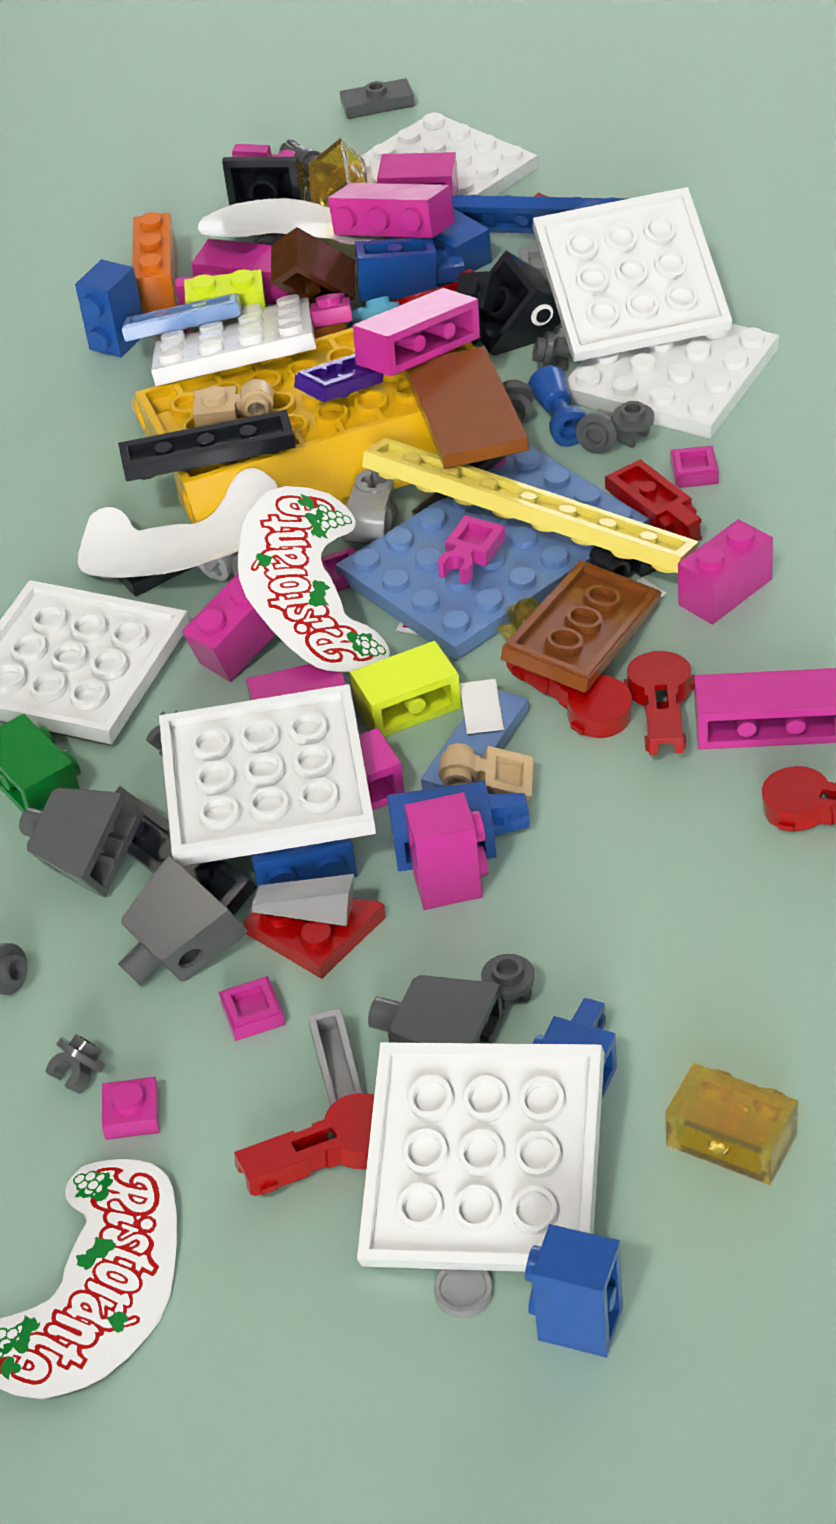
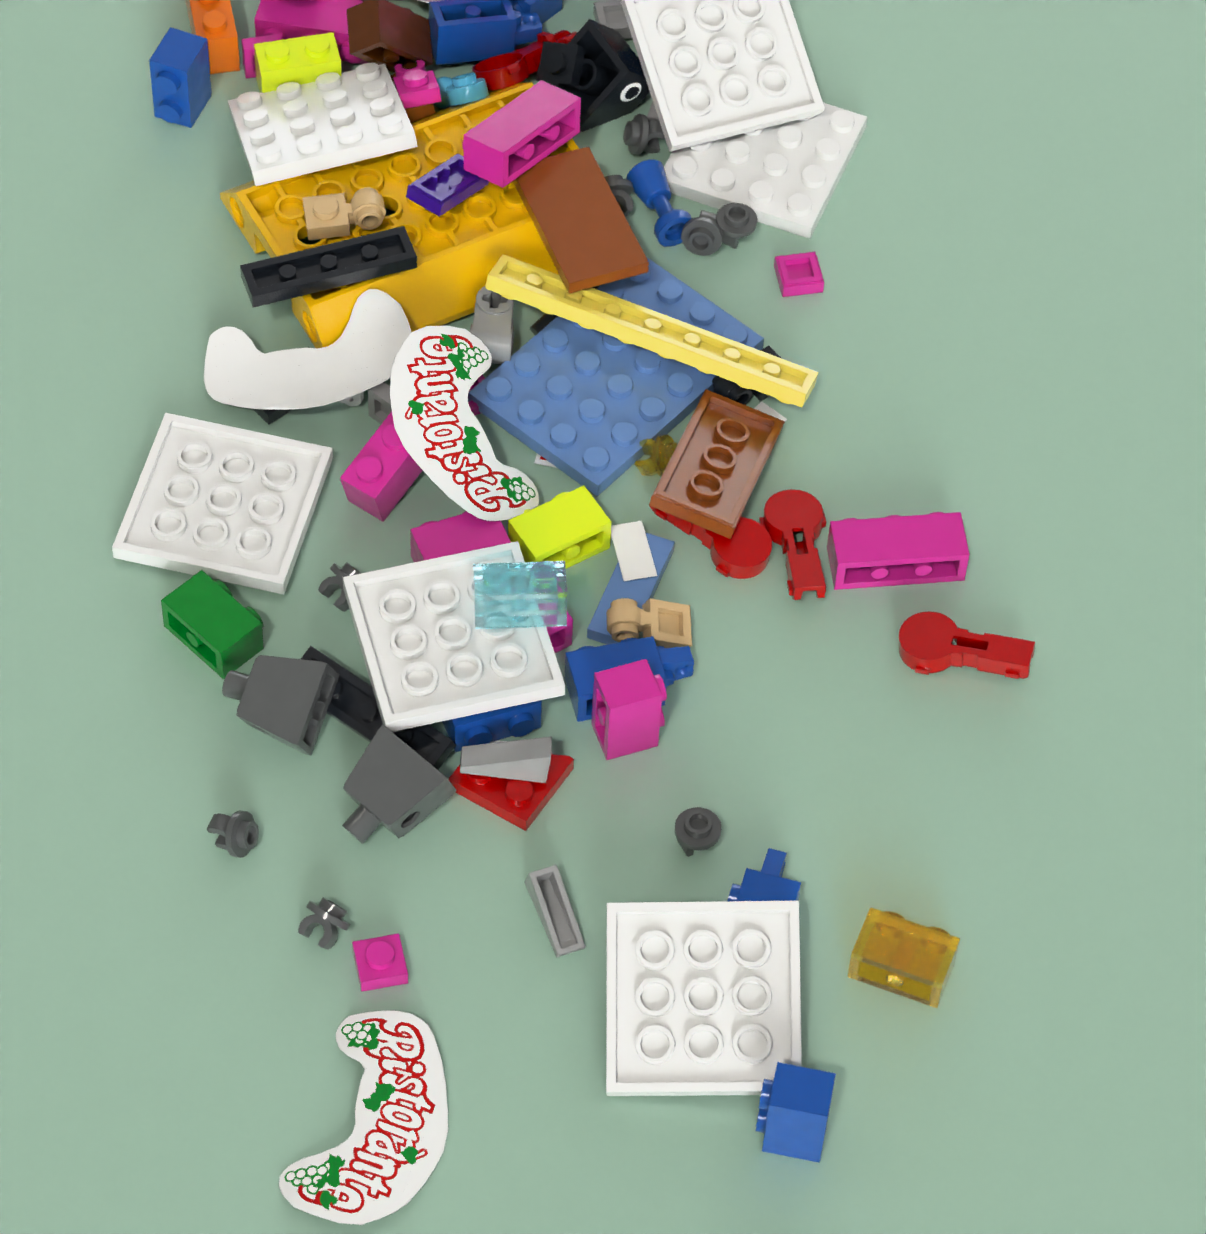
camera: 15 degrees left, 10 degrees up
(182, 316) = (260, 92): medium blue tile -> none
(251, 1008) = (469, 863): dark pink tile -> none
(300, 1153) = (535, 1002): red piece -> none
(334, 726) = (520, 594): none -> clear light blue brick
(440, 1012) = (642, 869): dark grey torso -> none
(463, 1292) = (695, 1114): light grey piece -> none
(470, 544) = (603, 377): dark pink plate -> none
(655, 498) = (768, 316): red hinge -> none
(725, 571) = (844, 401): dark pink brick -> none

